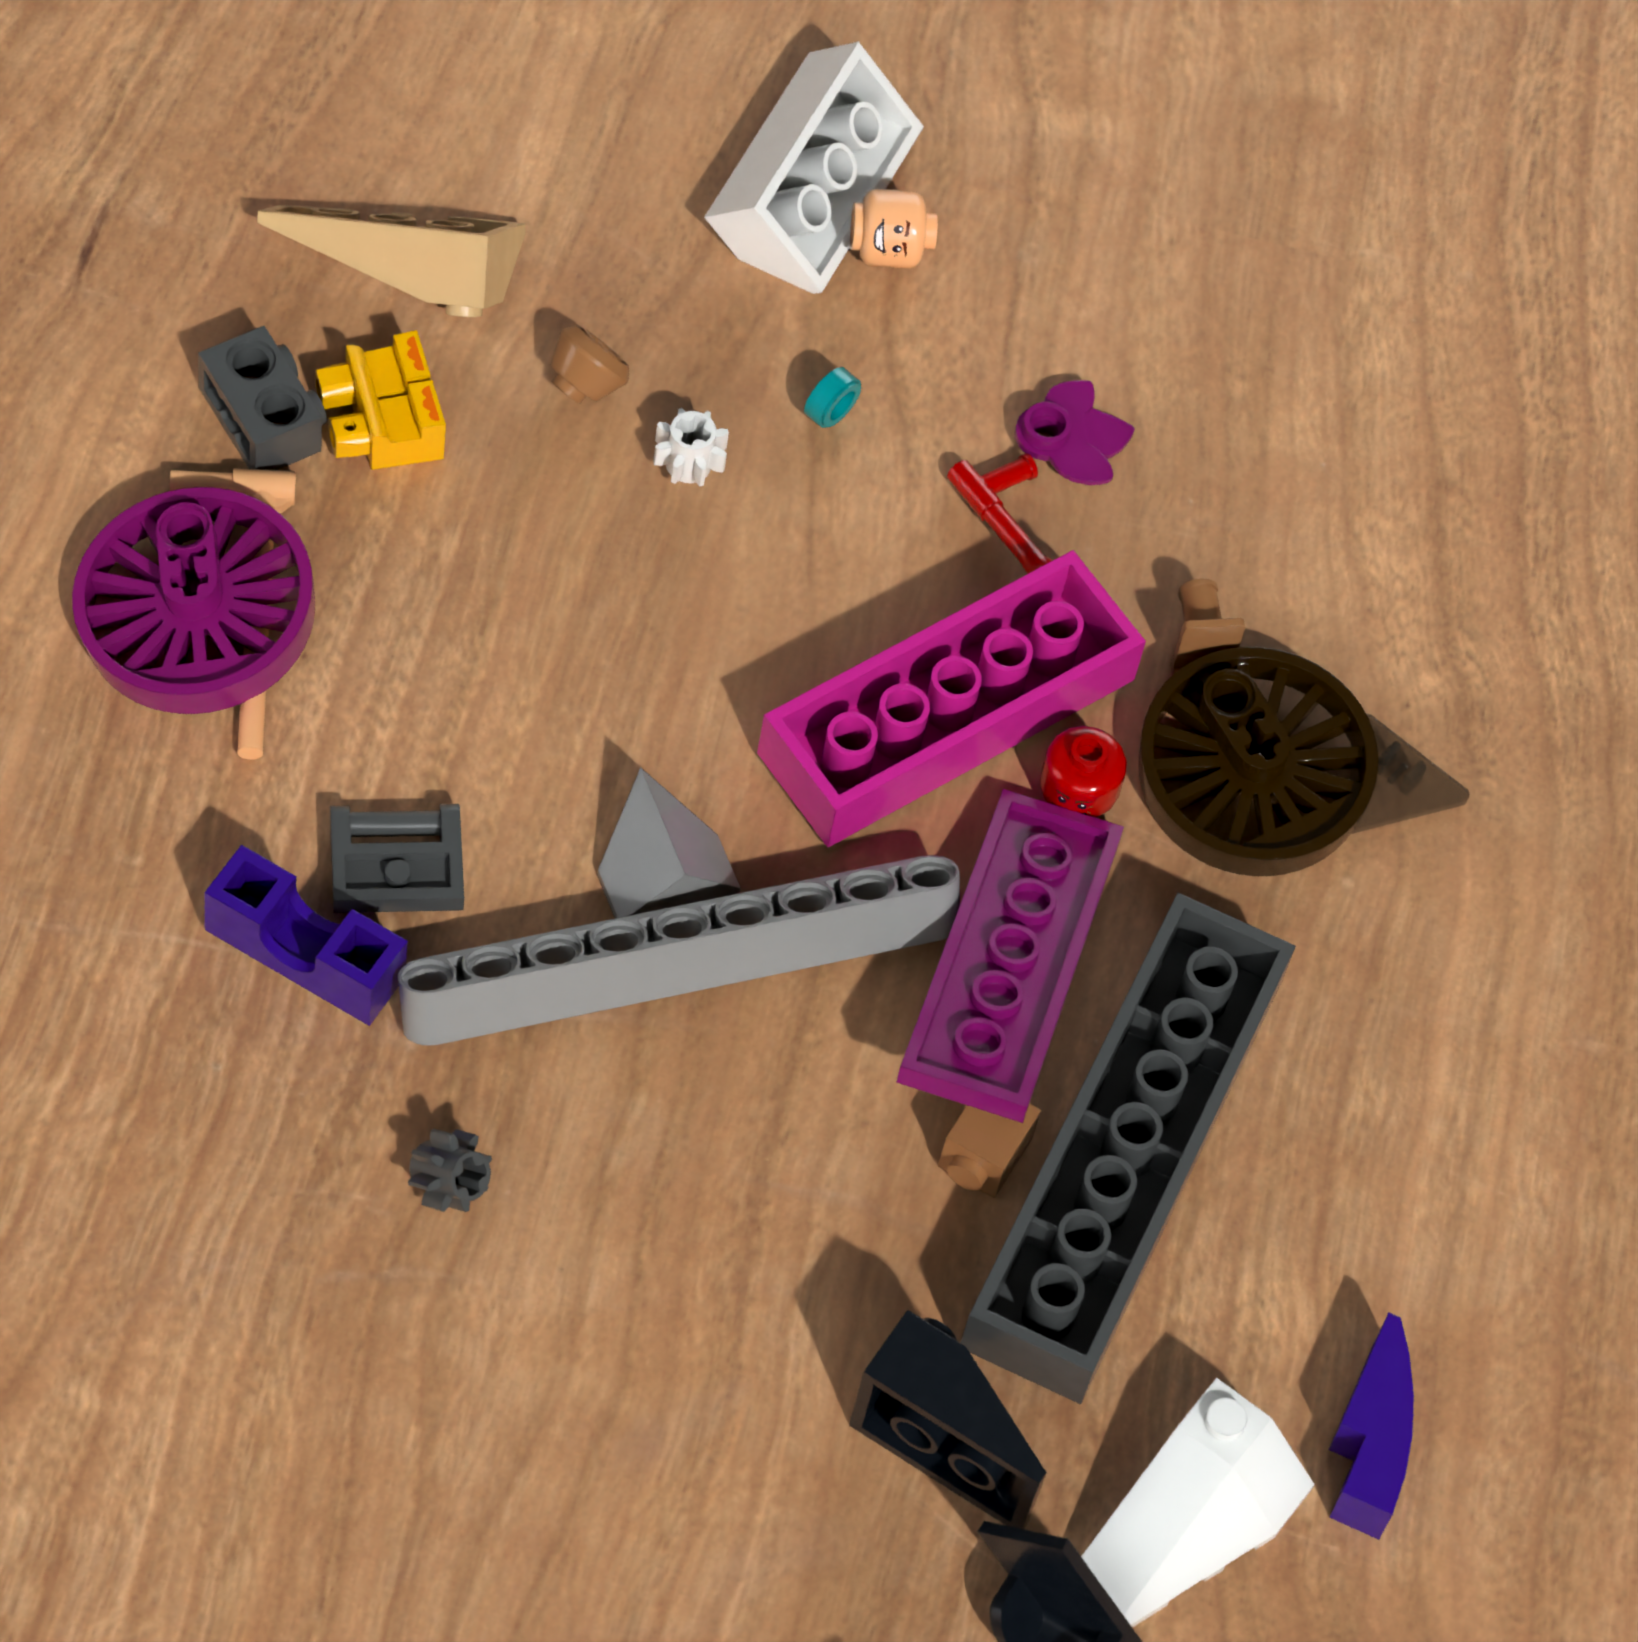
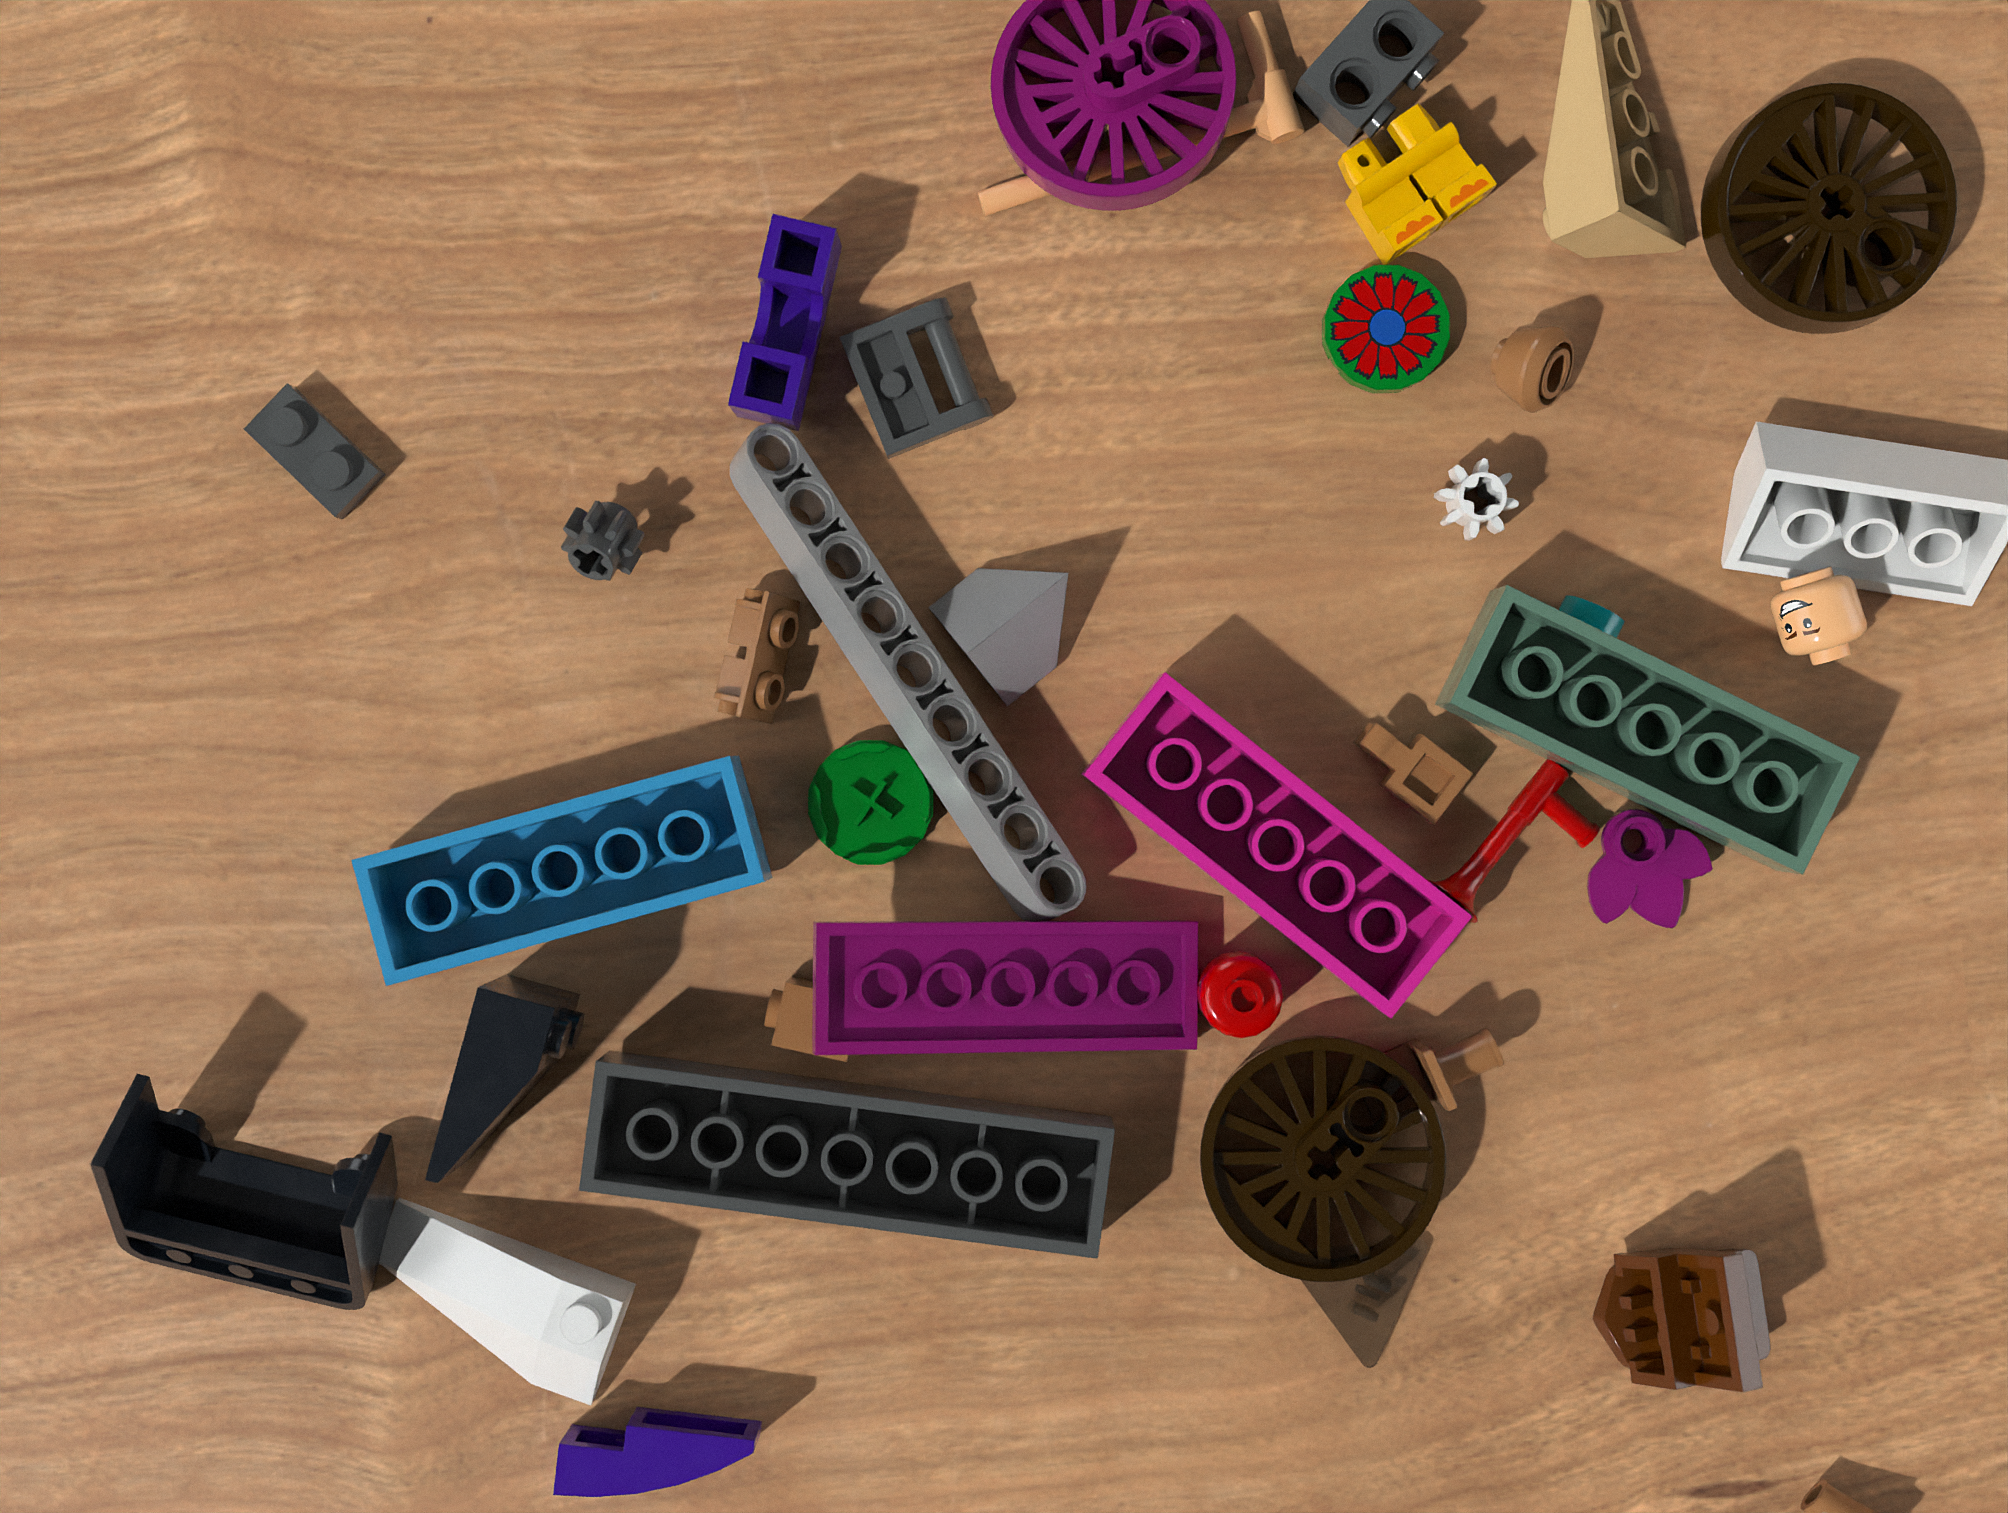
camera: 85 degrees right, 30 degrees up
(248, 1421) = (314, 451): none -> dark grey plate
(504, 471) = (1385, 328): none -> tile
(536, 111) = (1822, 178): none -> dark brown piece
(635, 1092) = (768, 628): none -> medium nougat hinge
(766, 1307) = (562, 869): none -> dark azure brick
(791, 1035) = (870, 802): none -> green tile
(922, 570) = (1419, 774): none -> medium nougat plate
(946, 384) = (1647, 730): none -> sand green brick
(1488, 521) = (1686, 1318): none -> reddish brown piece

